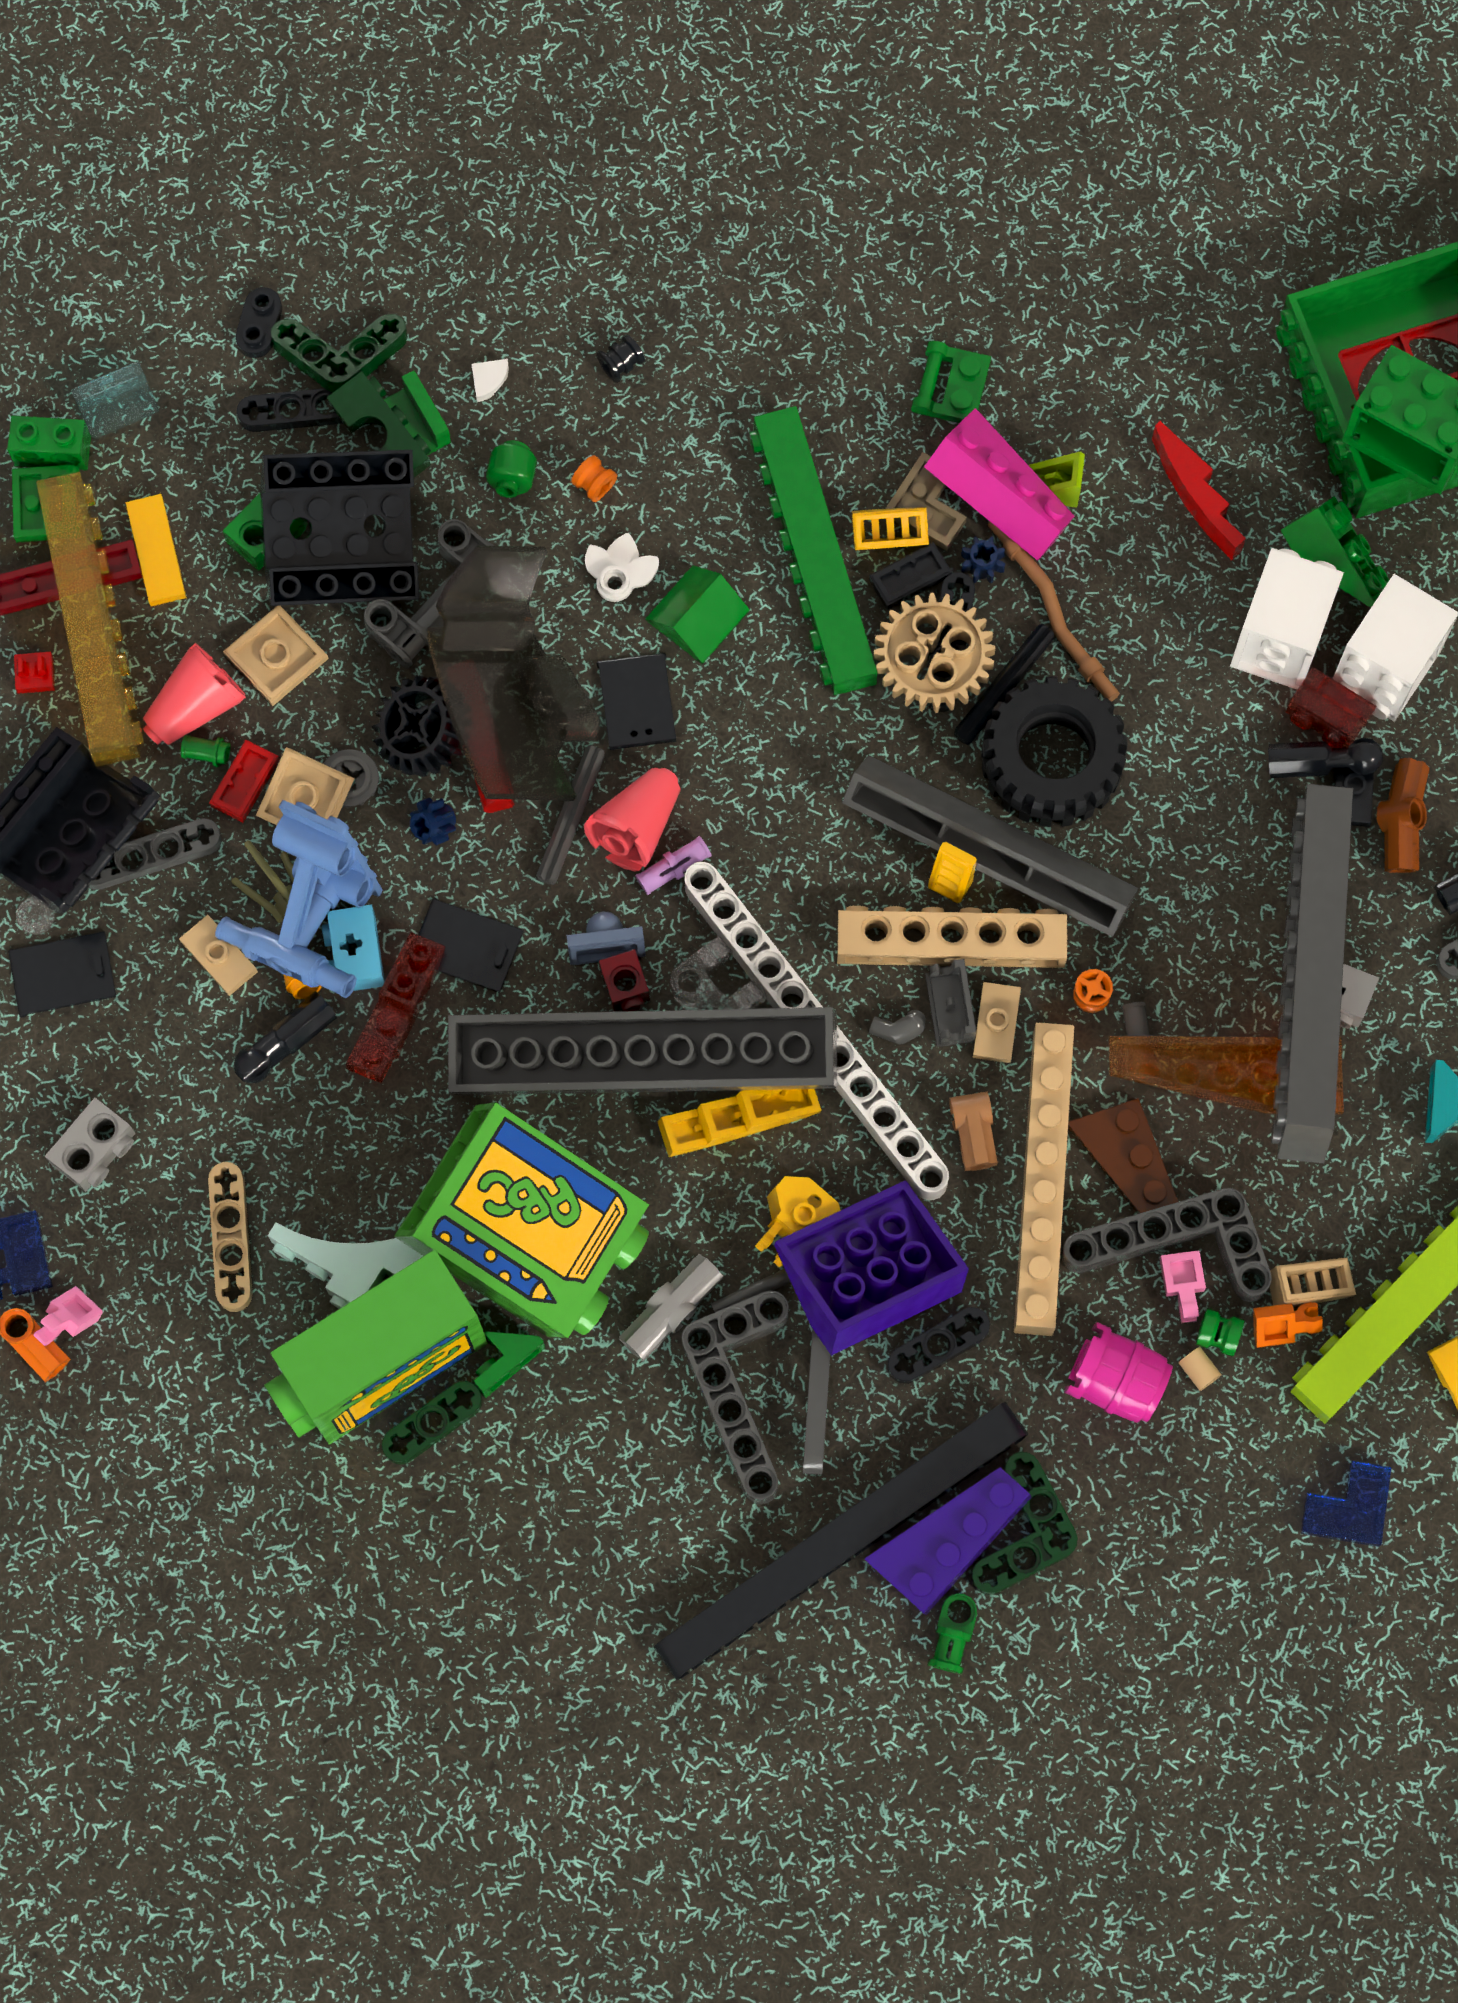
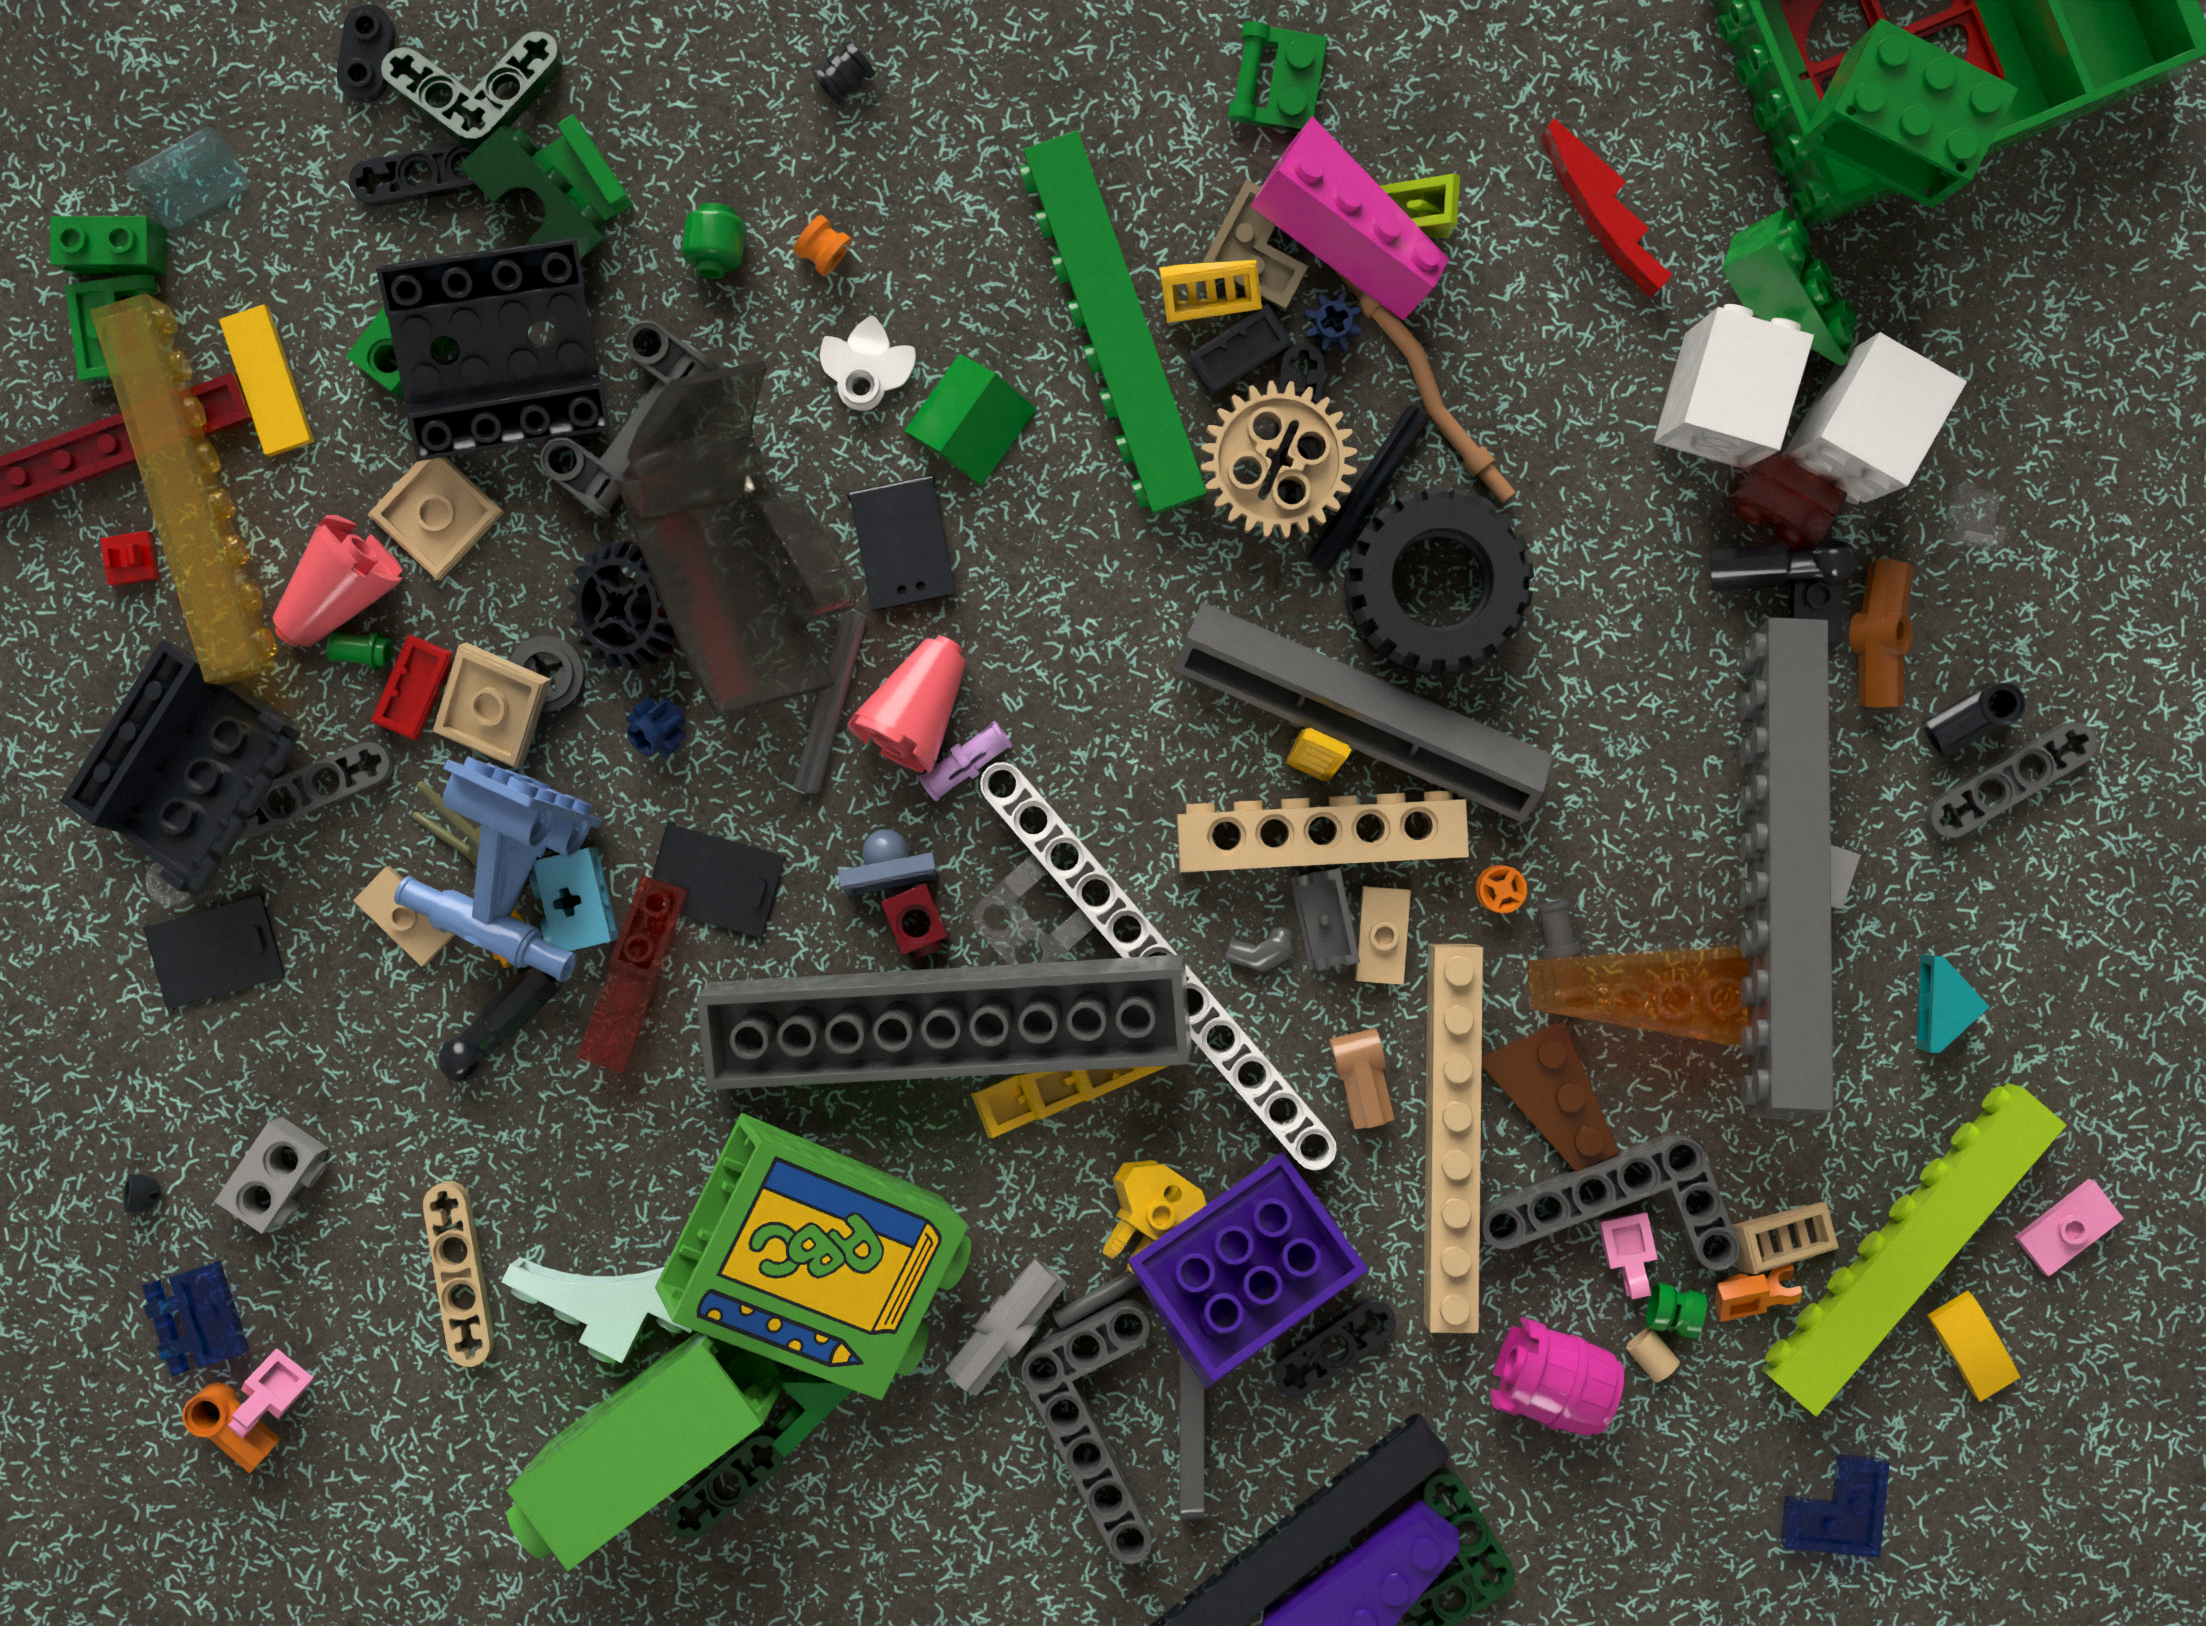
camera: 10 degrees left, 15 degrees up
(489, 377) = (674, 111): white tile -> none

